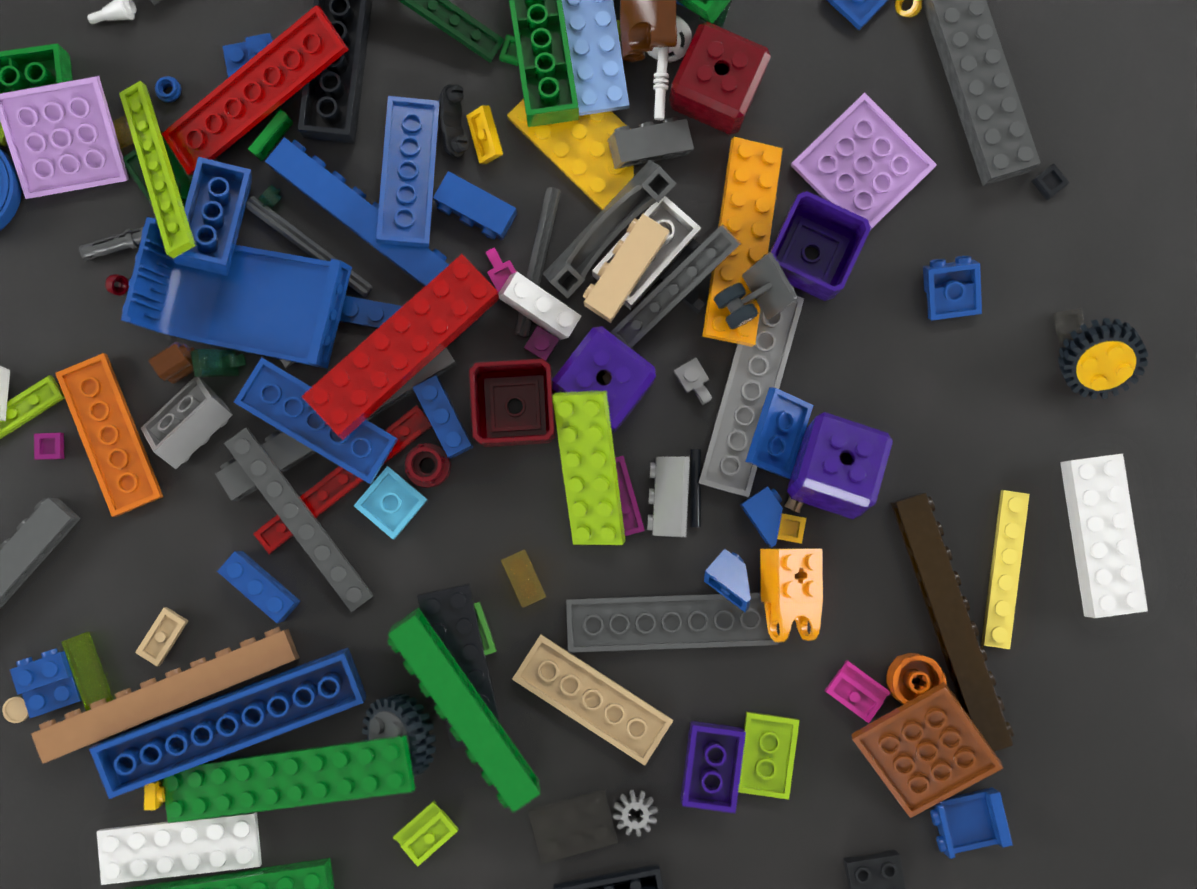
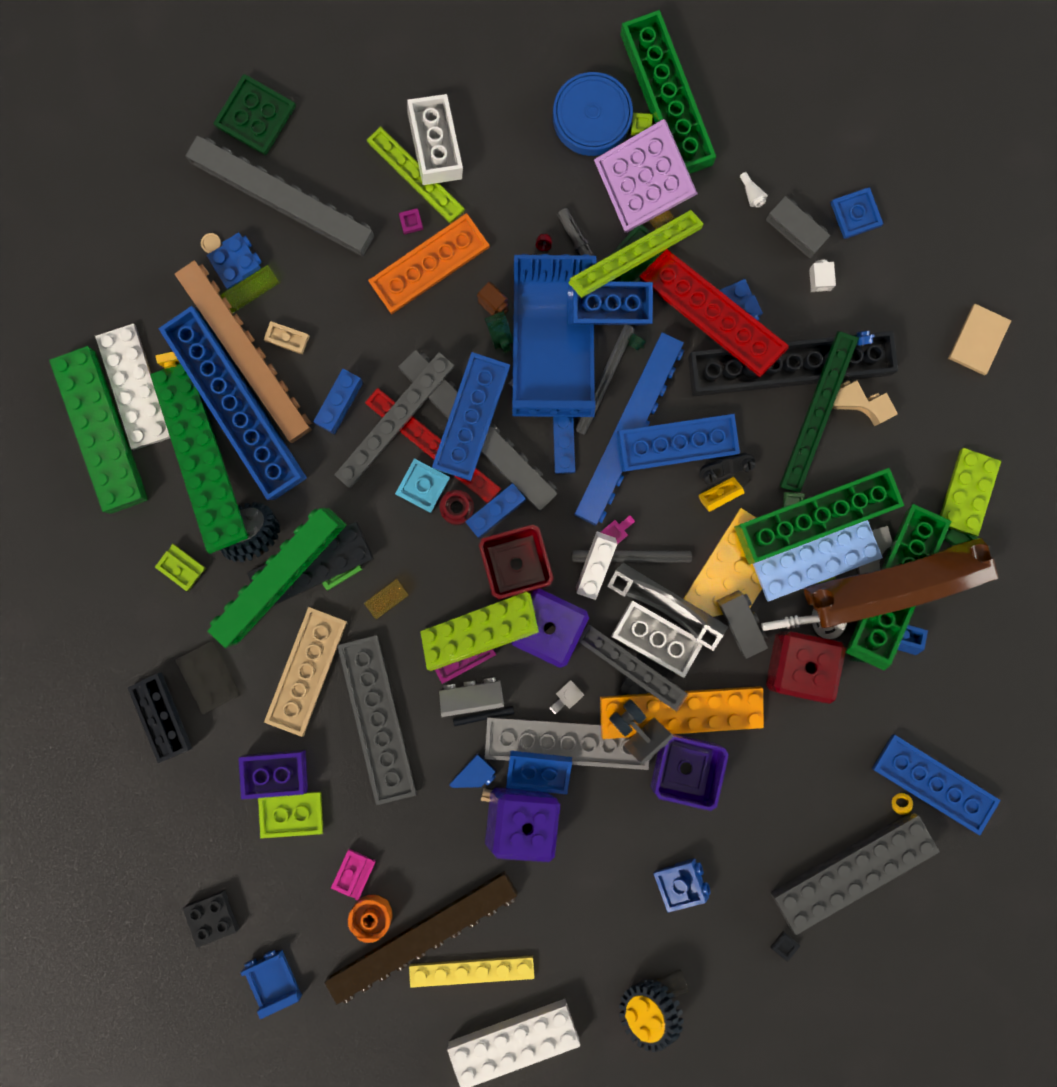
camera: 75 degrees right, 0 degrees up
(165, 82) = (702, 240): blue plate -> none
(186, 422) = (450, 318): light grey slope -> none
(270, 135) = (683, 331): green tile -> none
(401, 346) = (540, 469): red brick -> none
(474, 206) = (663, 499): blue brick -> none
(541, 343) = (569, 573): magenta plate -> none
(626, 267) = (639, 627): tan brick -> none
(634, 822) = (219, 722): light grey gear -> none
(729, 578) = (418, 757): slope -> none
(791, 528) = (467, 797): yellow plate -> none
(792, 591) = (419, 807): light orange brick -> none
(864, 162) = (765, 794): lavender plate -> none
(927, 750) = (318, 937): dark orange plate -> none

